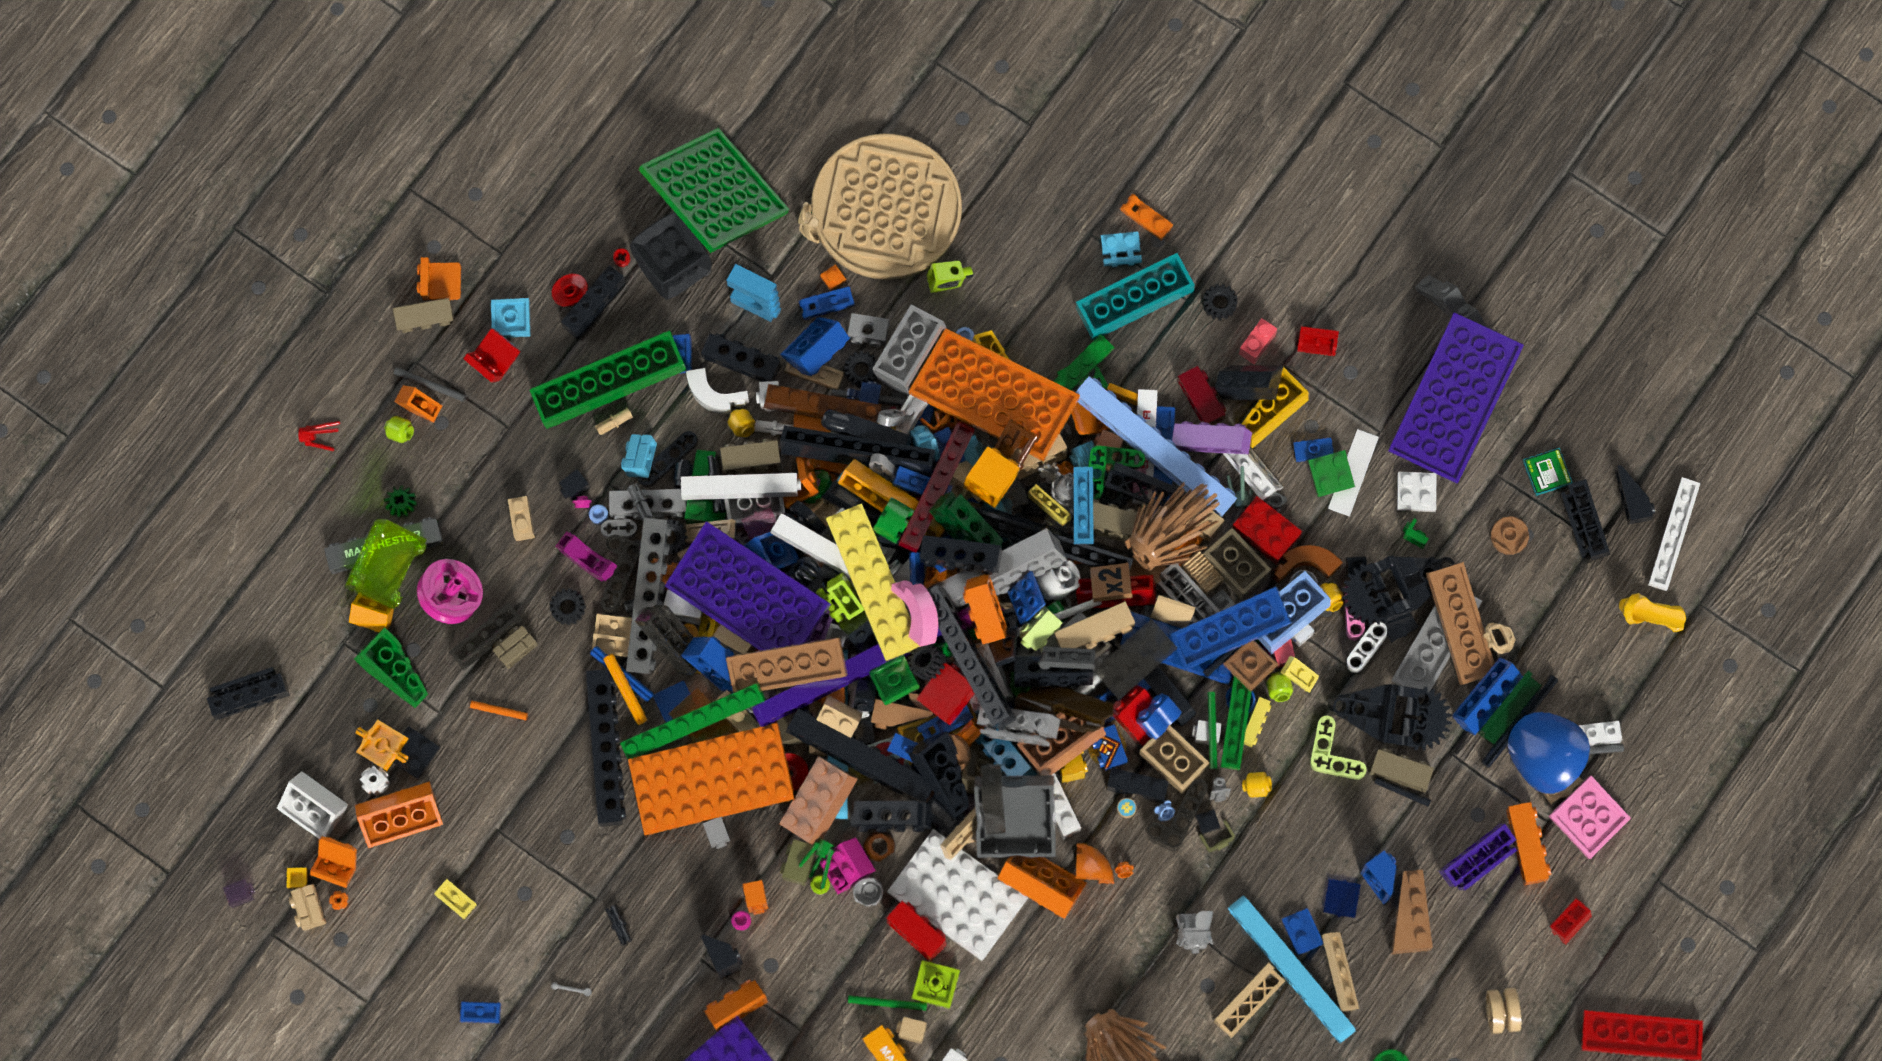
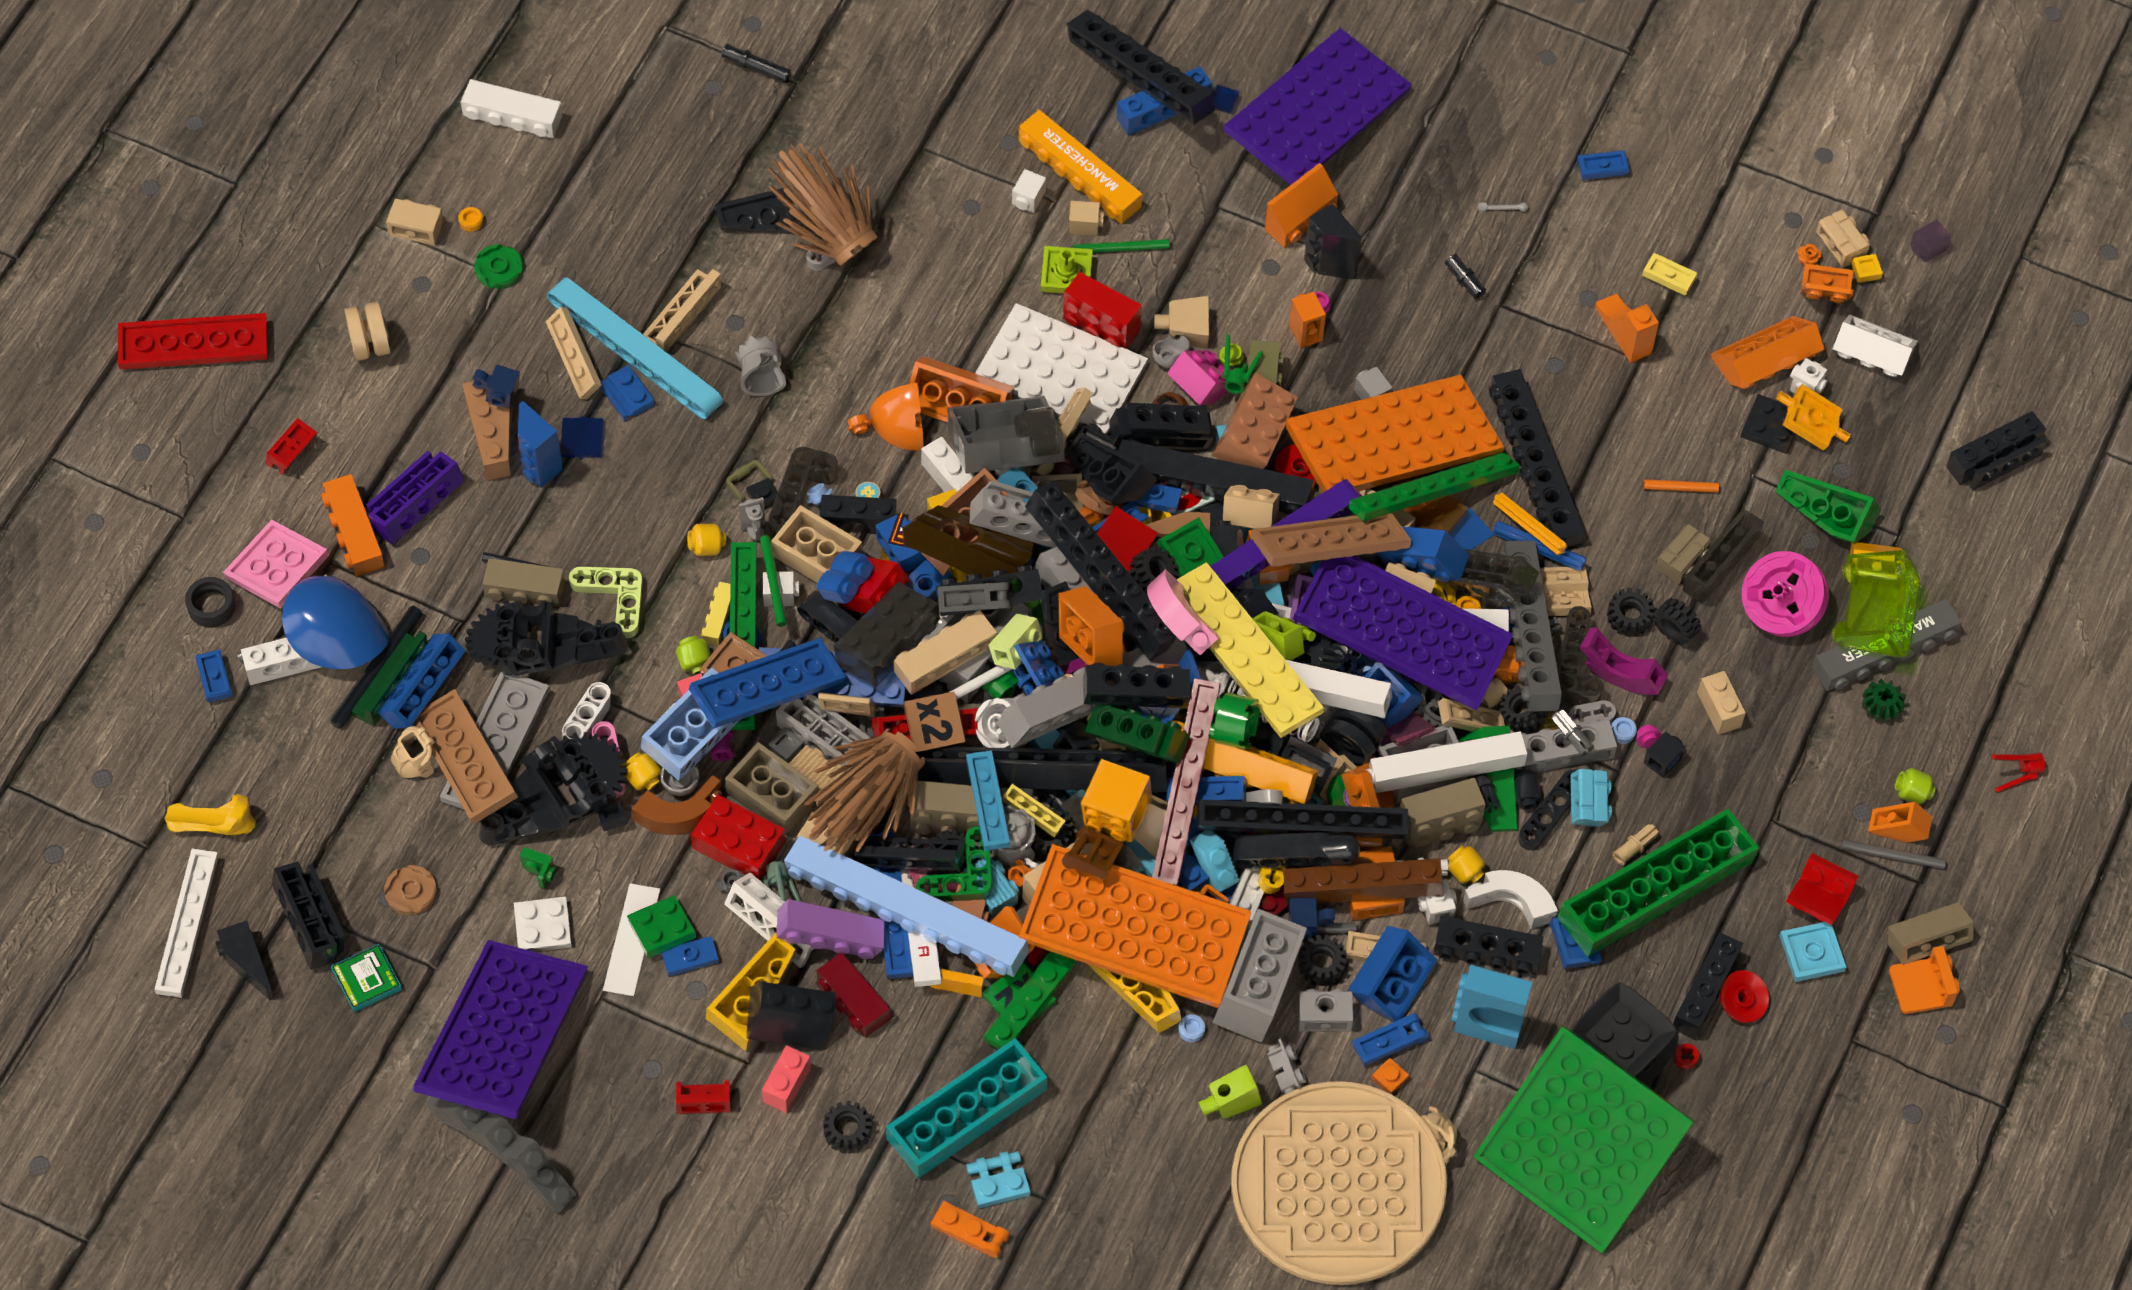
camera: 165 degrees right, 15 degrees down
(503, 854) = (1632, 329): none -> orange arch
(536, 586) = (1677, 621): none -> black tyre
(850, 918) = (1187, 319): none -> tan torso
(891, 417) = (1262, 876): light grey beam -> none
(902, 286) = (1284, 1058): none -> light grey hinge
(1299, 674) = (670, 669): light yellow plate -> none
(1403, 930) = (500, 386): none -> dark blue brick
(1643, 732) = (213, 676): none -> blue plate
(1645, 781) = (203, 586): none -> black tyre

